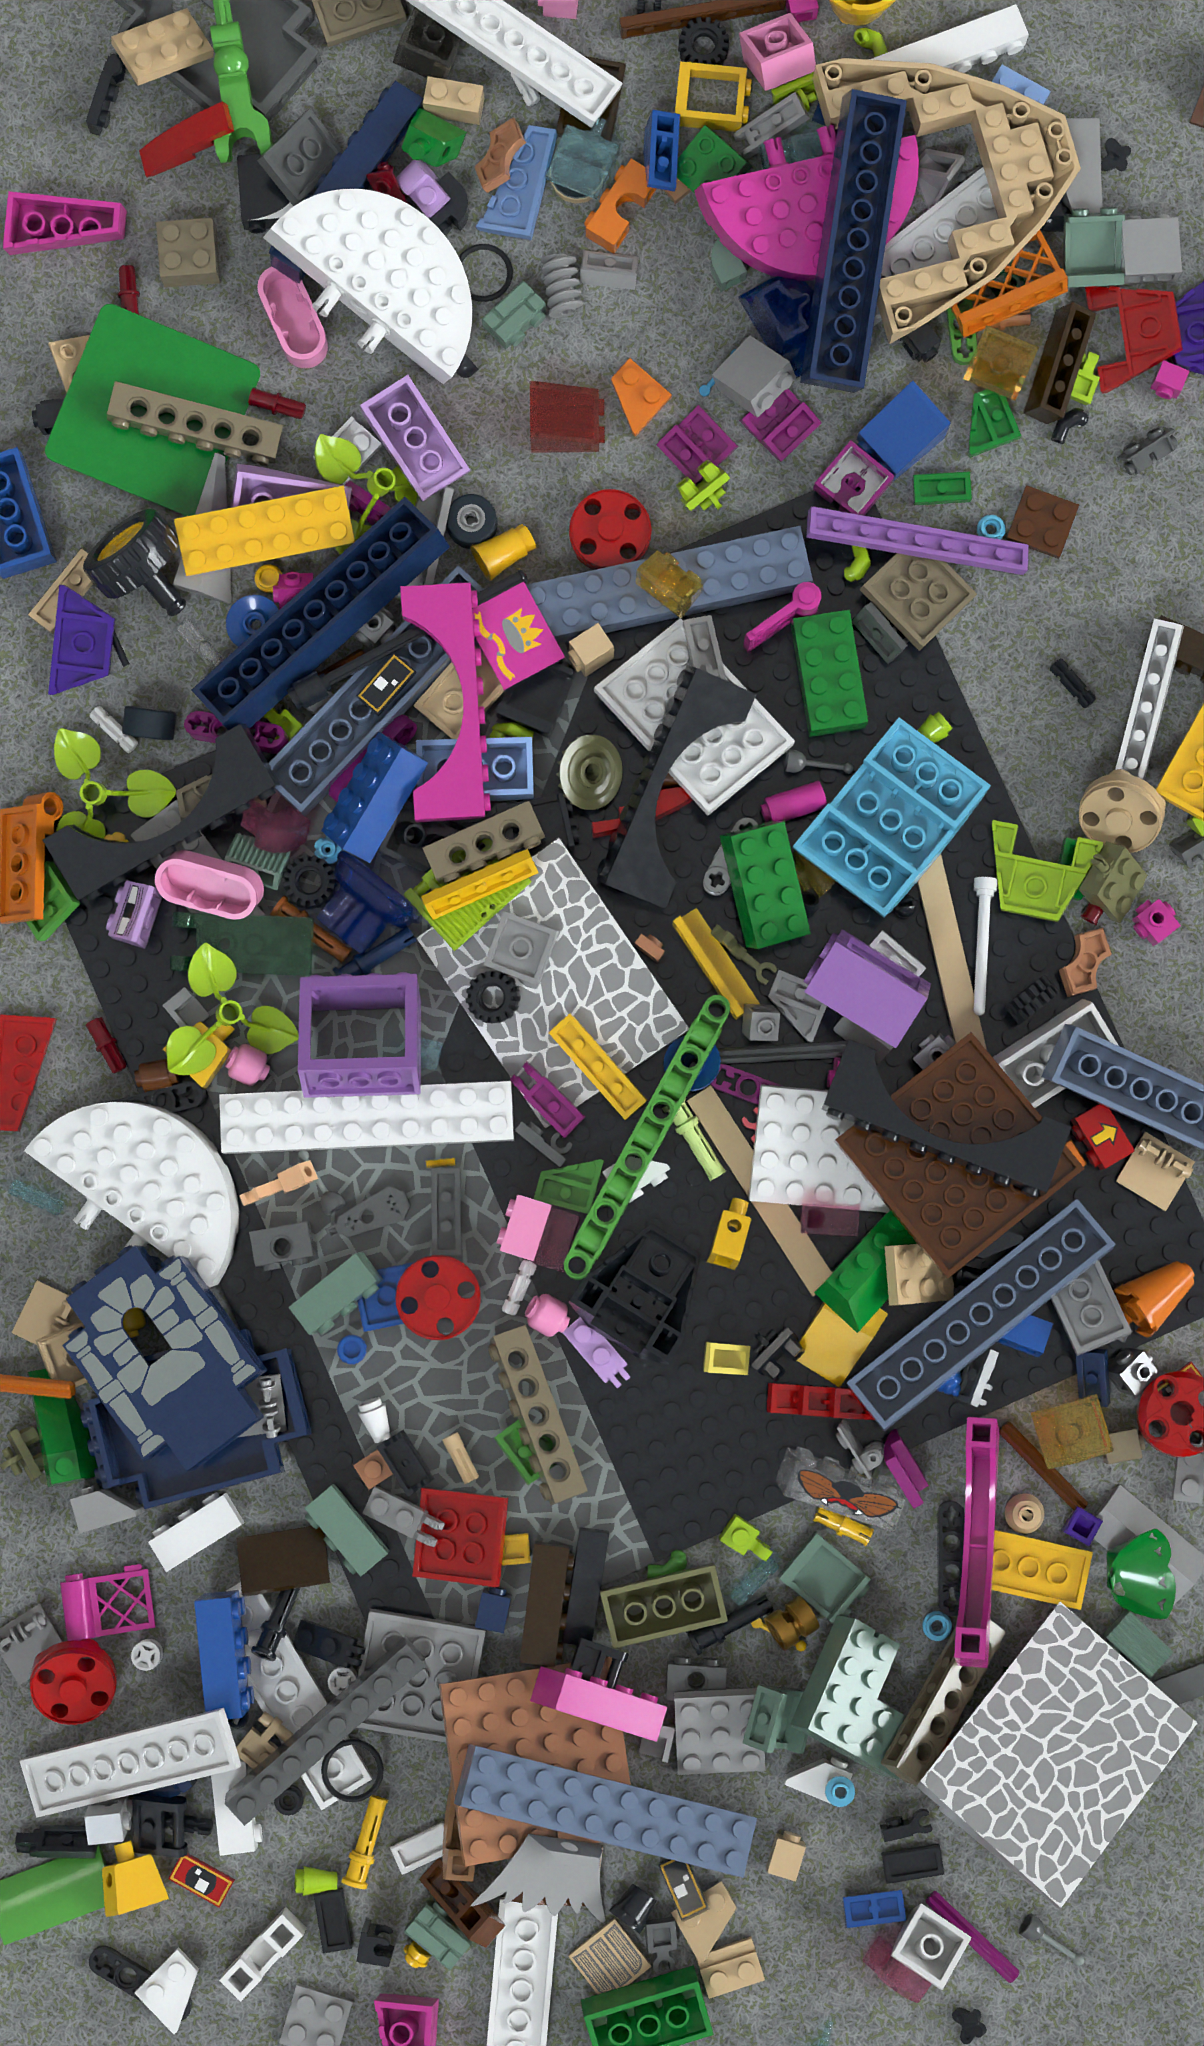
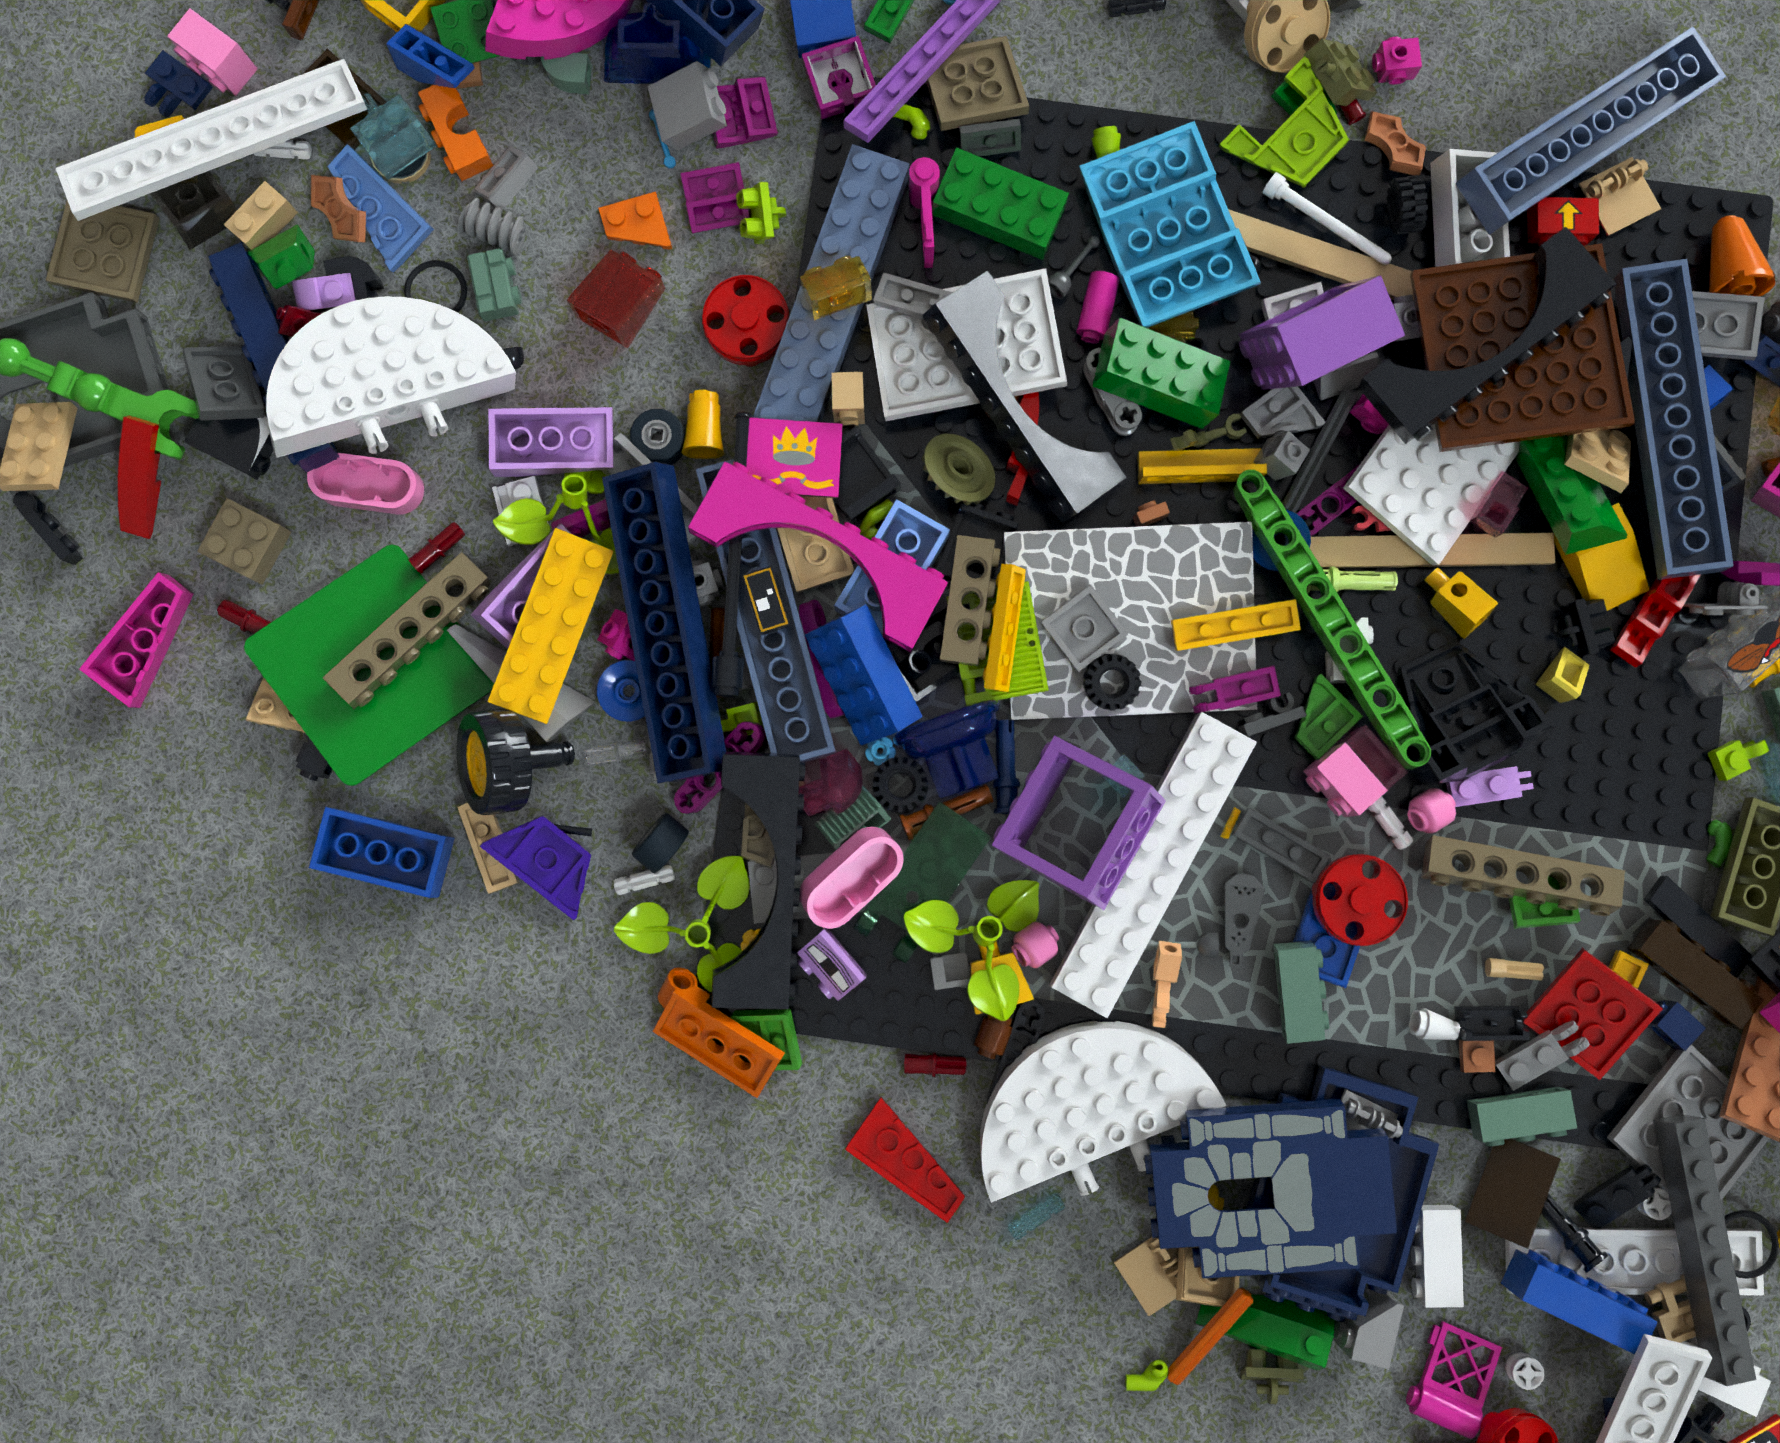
camera: 55 degrees left, 0 degrees up
(265, 1240) = (1217, 996): dark grey brick -> none
(266, 577) = (592, 653): yellow plate -> none
(352, 1349) = (1354, 1008): blue tile -> none

